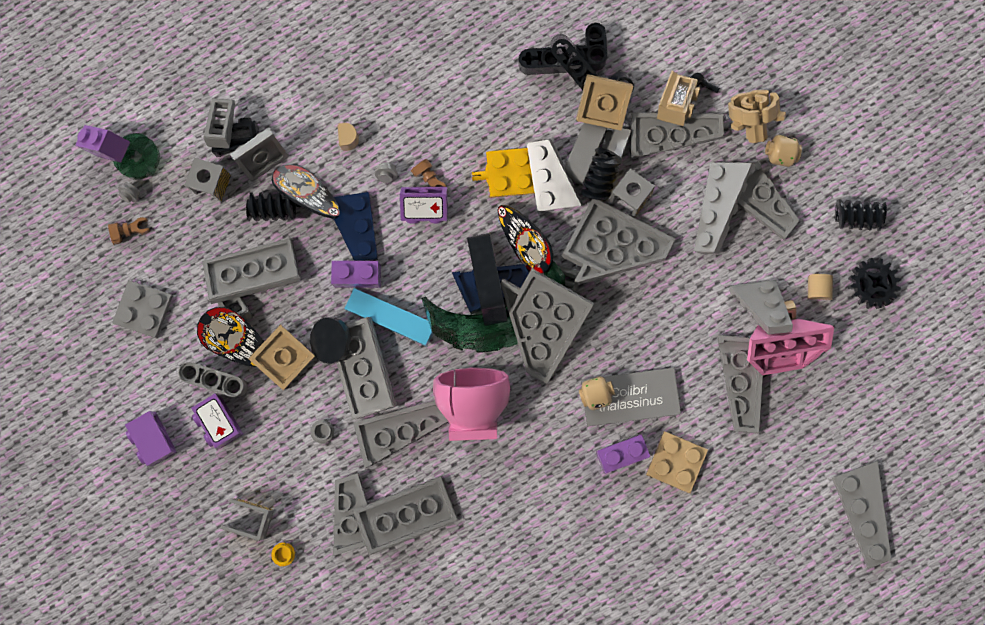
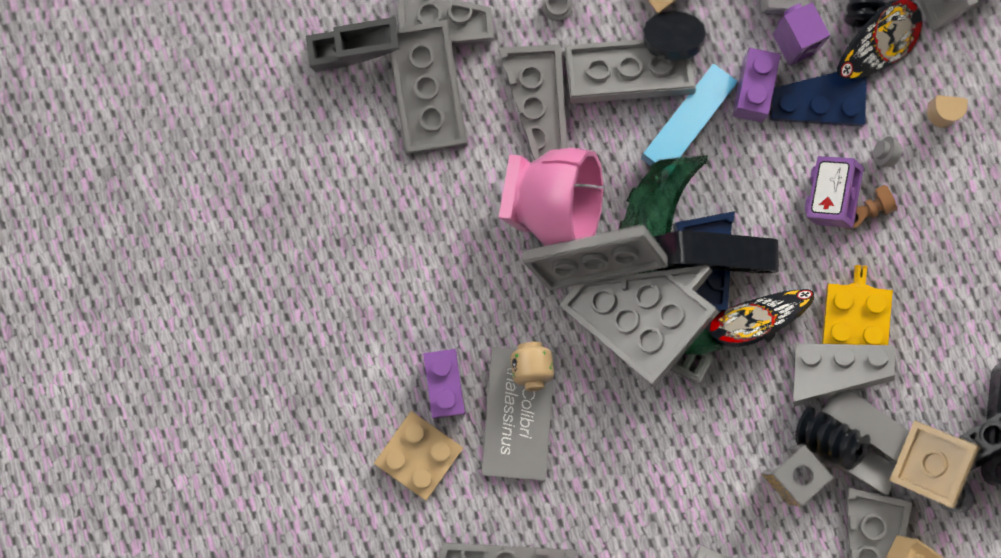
camera: 90 degrees right, 0 degrees up
(312, 249) = (800, 33): none -> medium lavender brick
(384, 578) = (352, 44): none -> dark grey slope
(512, 363) = (595, 258): none -> light grey tile
(613, 243) = (732, 435): light grey wing -> none

